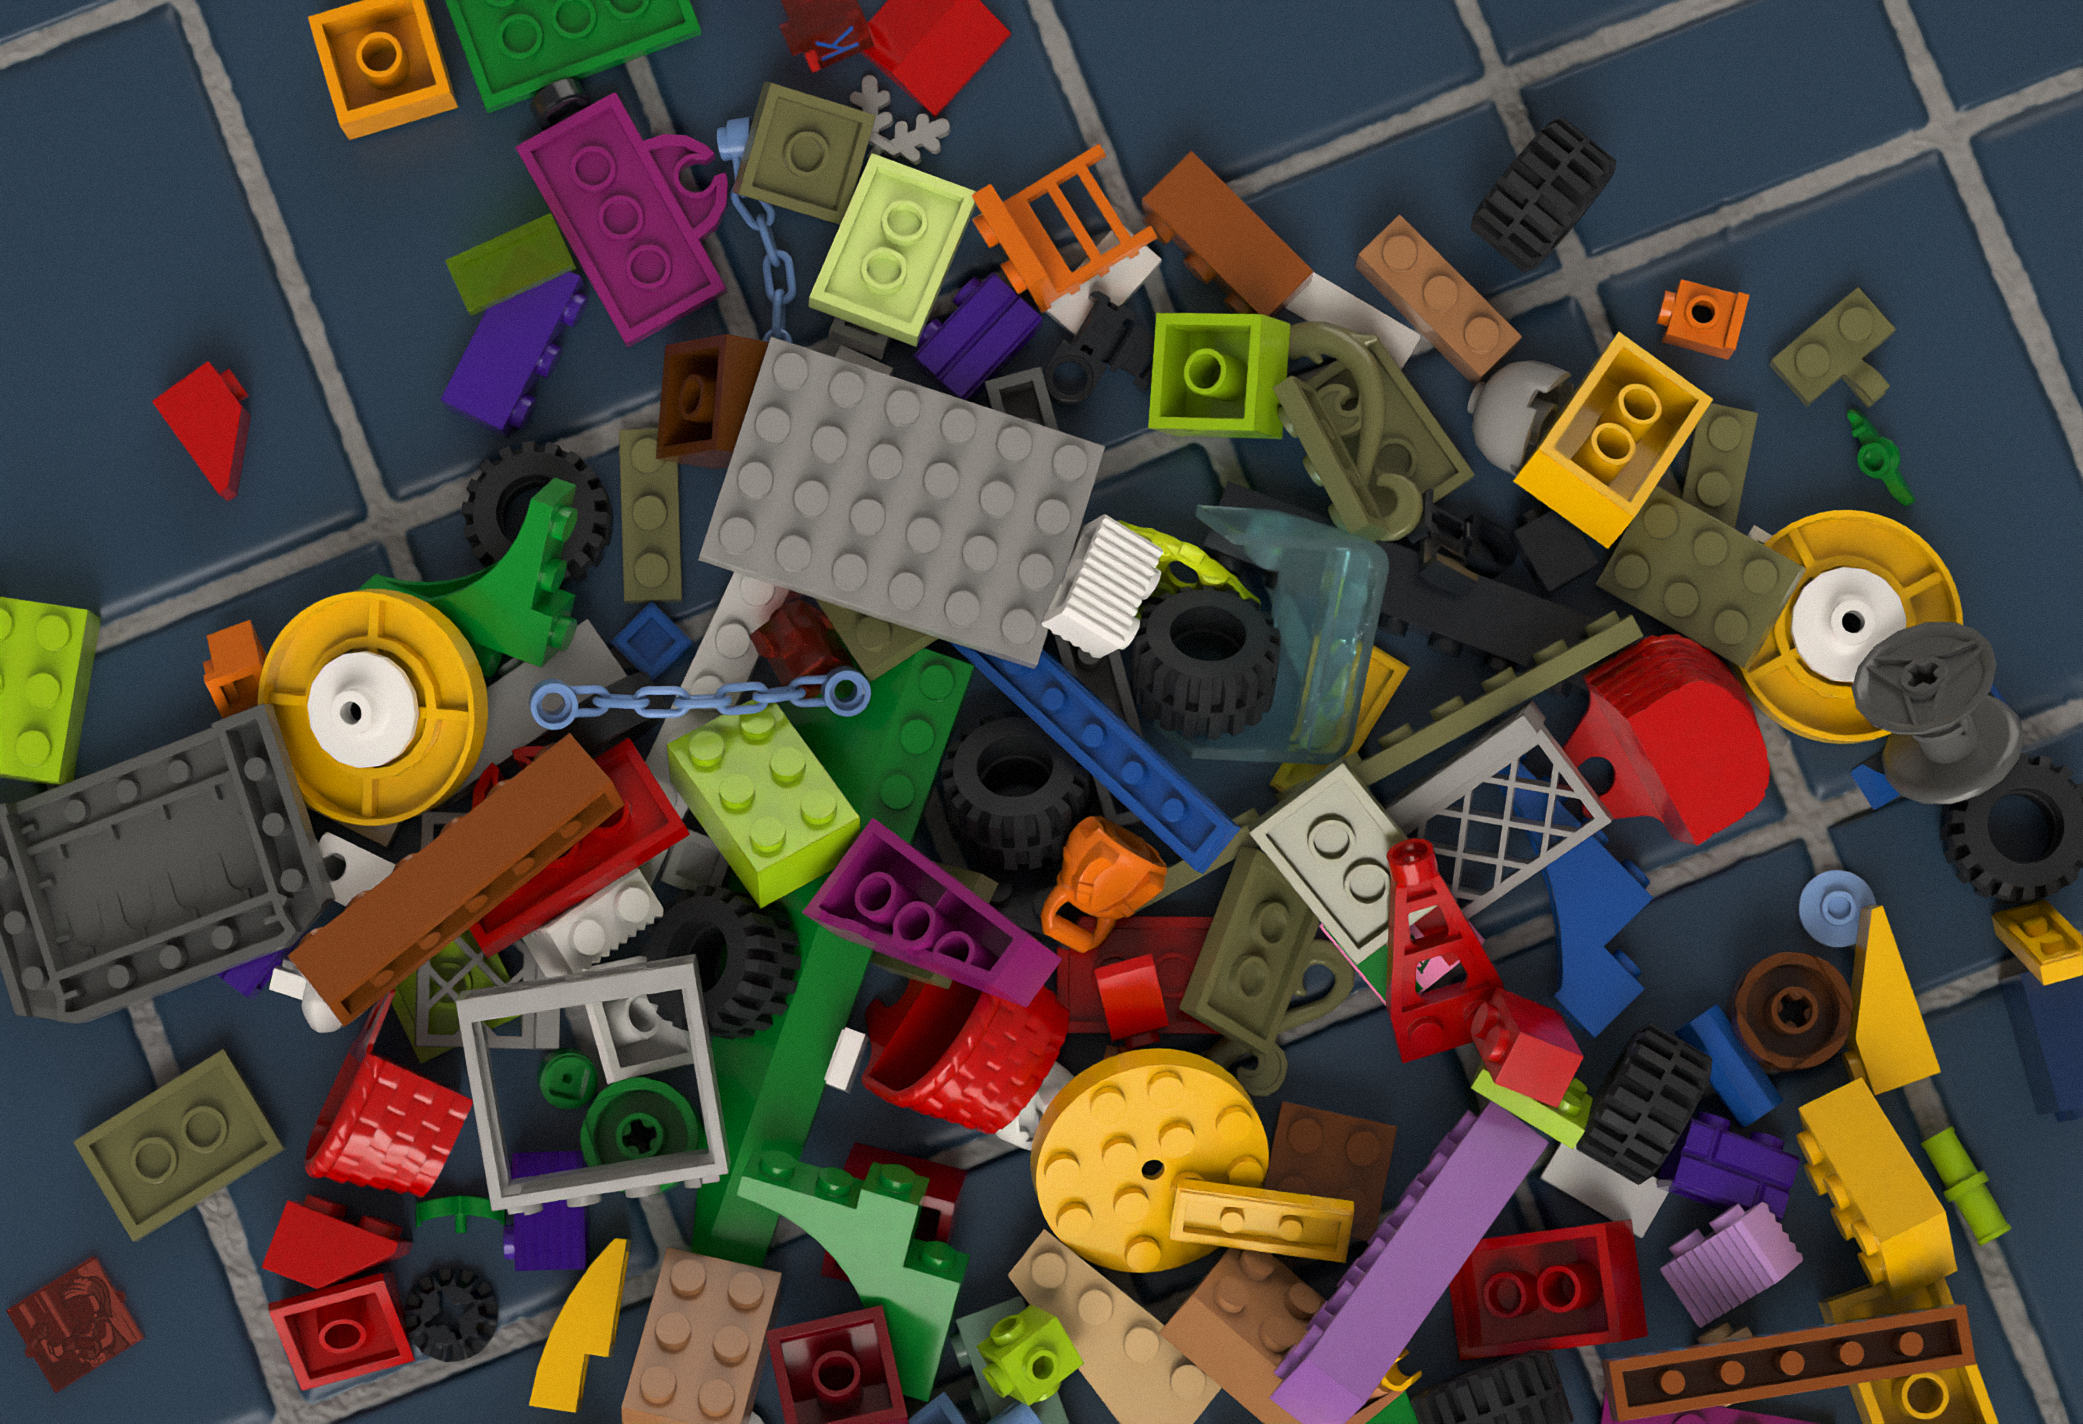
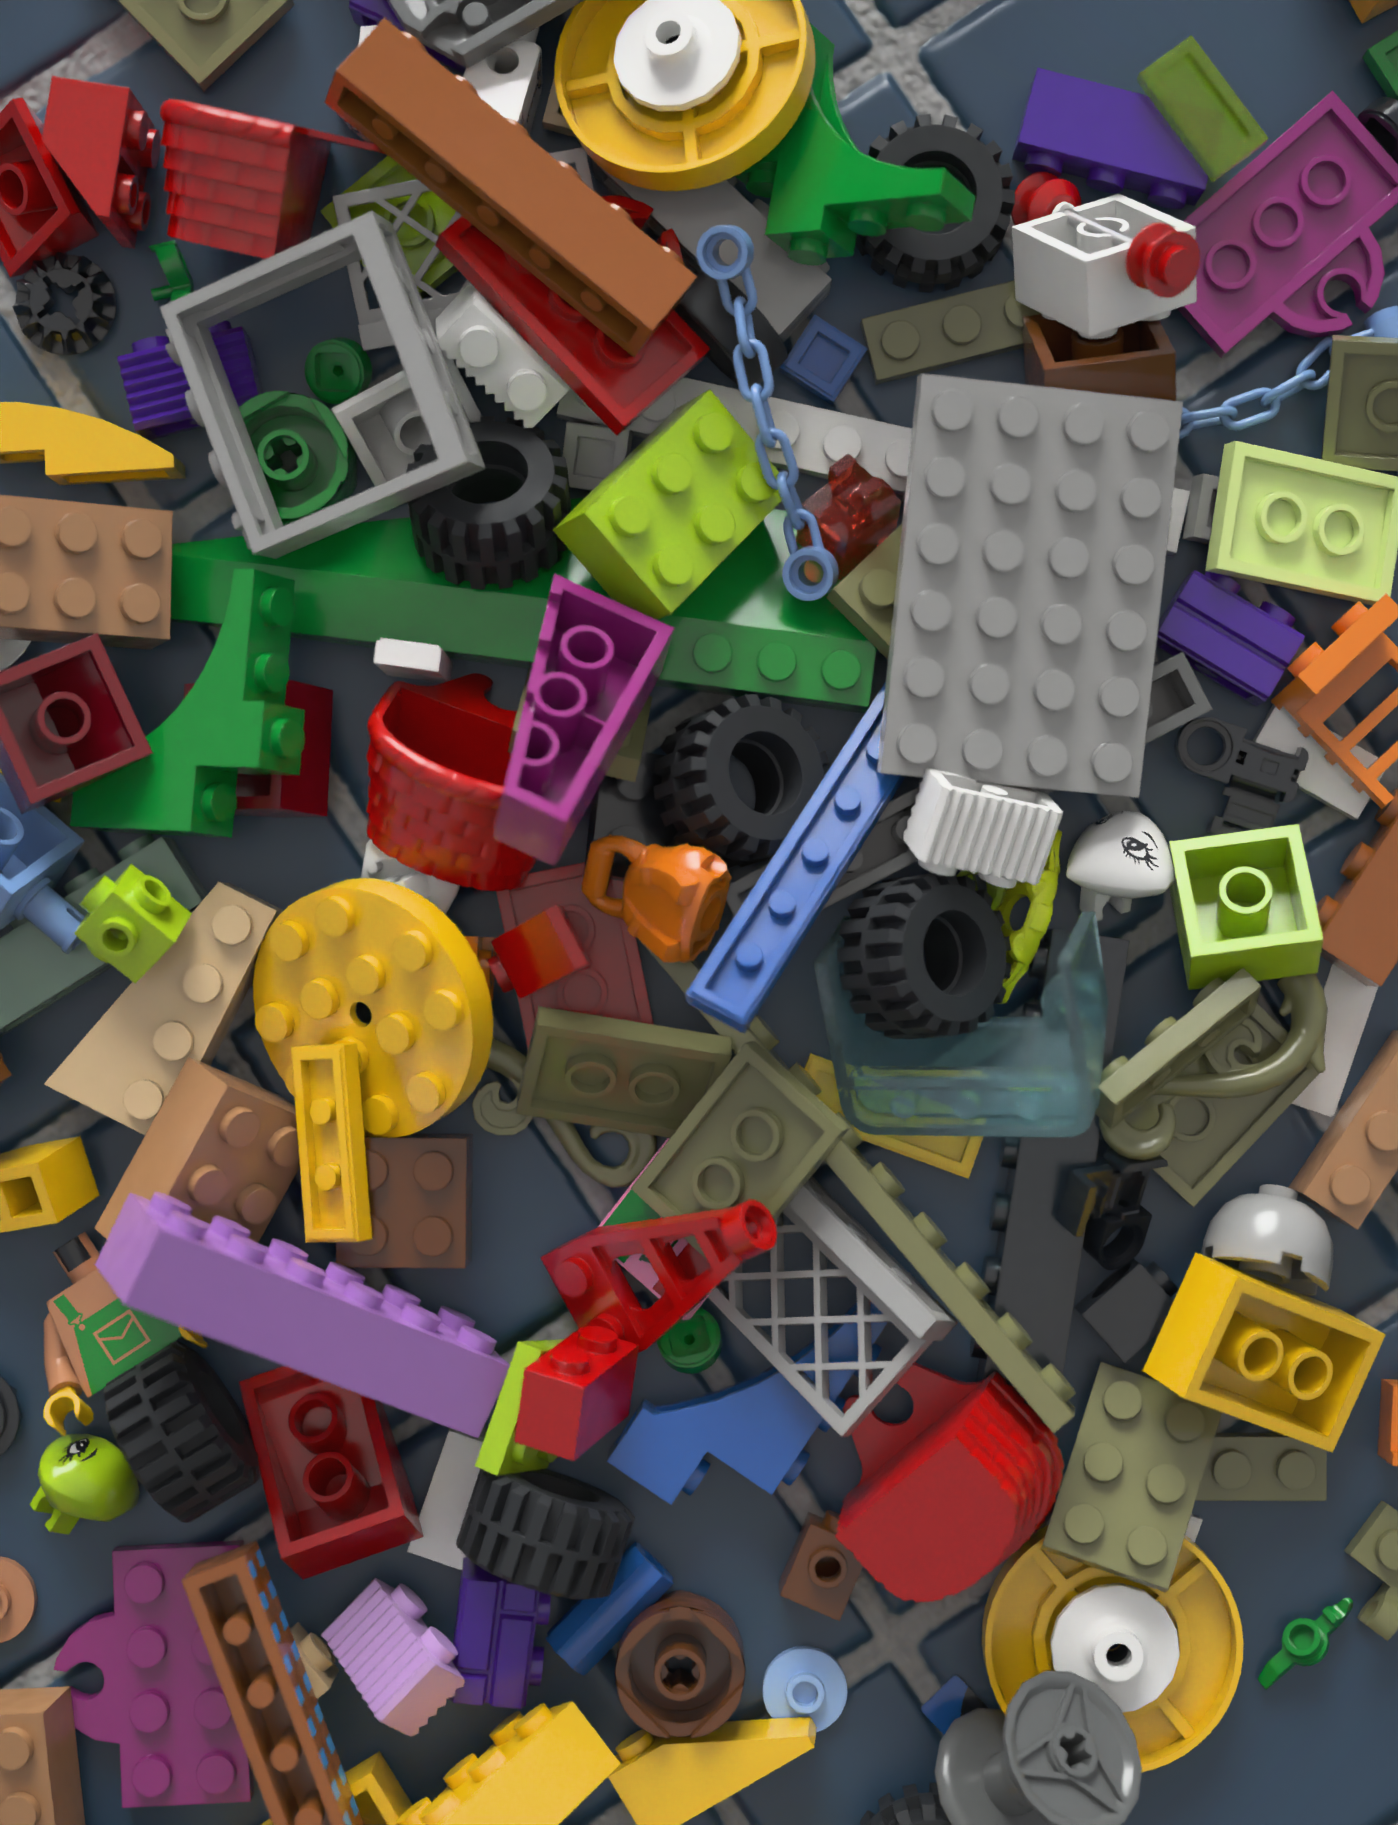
camera: 80 degrees right, 5 degrees up
(624, 381) = (1099, 259): none -> white brick
(1156, 474) = (1120, 861): none -> white piece
(1507, 943) = (692, 1343): none -> green tile
(1727, 868) = (820, 1568): none -> reddish brown brick

